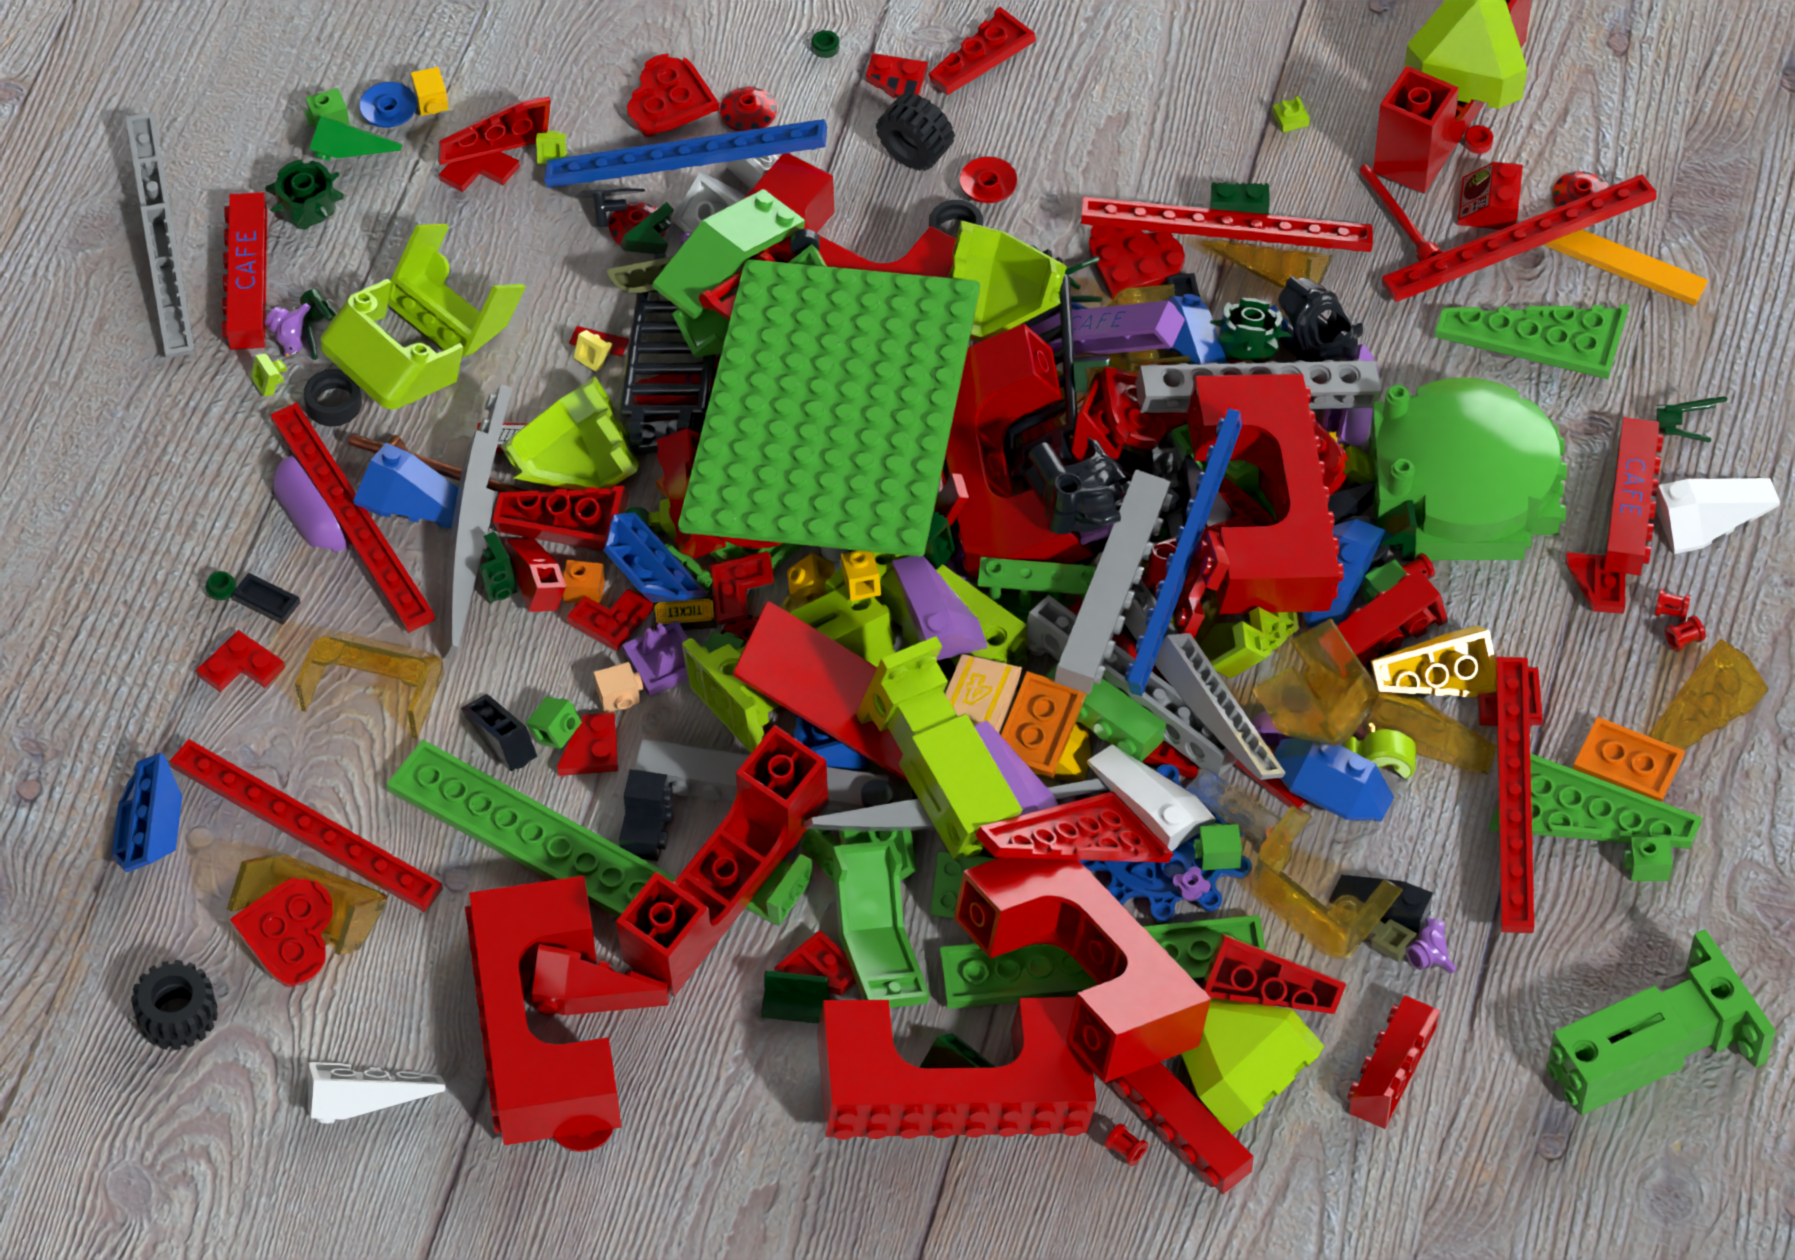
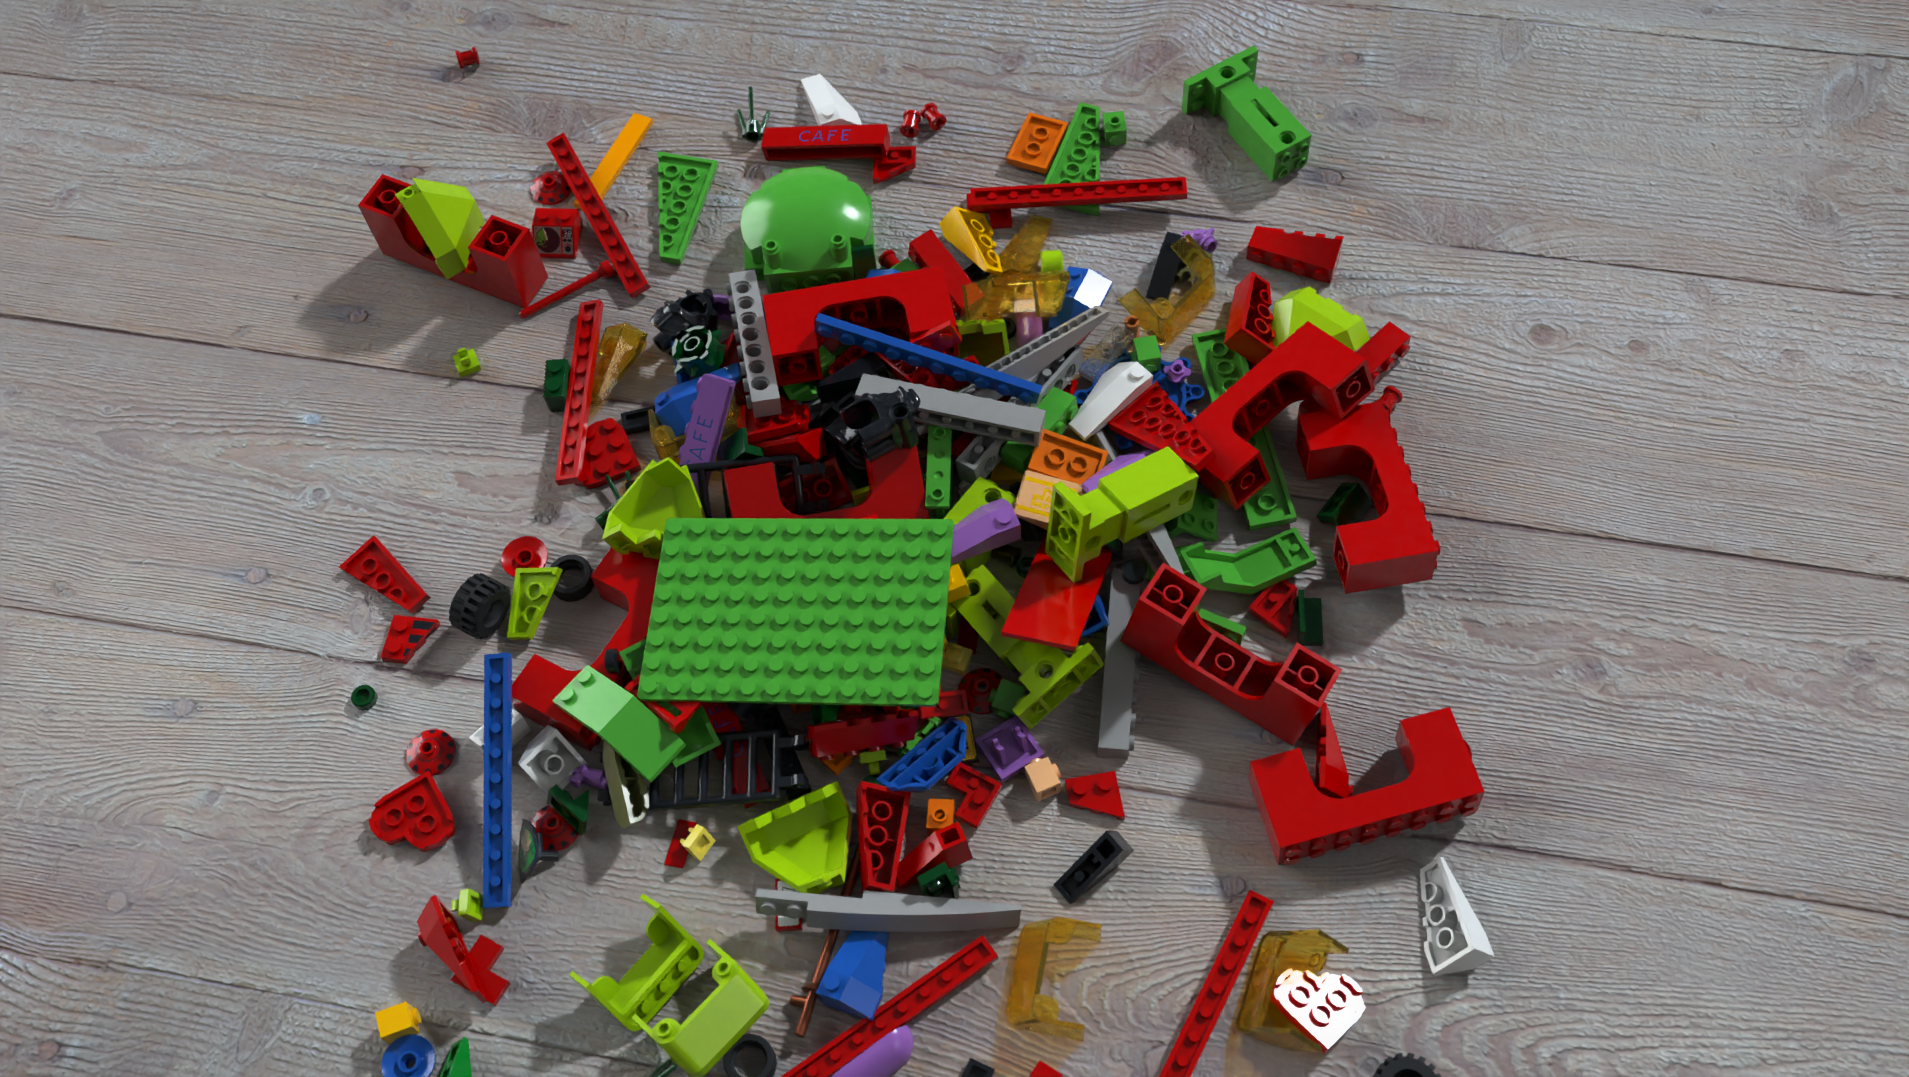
camera: 90 degrees left, 5 degrees up
(520, 827) = (1188, 829): bright green plate -> none
(553, 722) = (1083, 820): bright green brick -> none
(646, 814) = (1168, 740): black brick -> none
(927, 185) = (530, 599): none -> lime wing
(1714, 694) = (982, 105): clear yellow wedge -> none

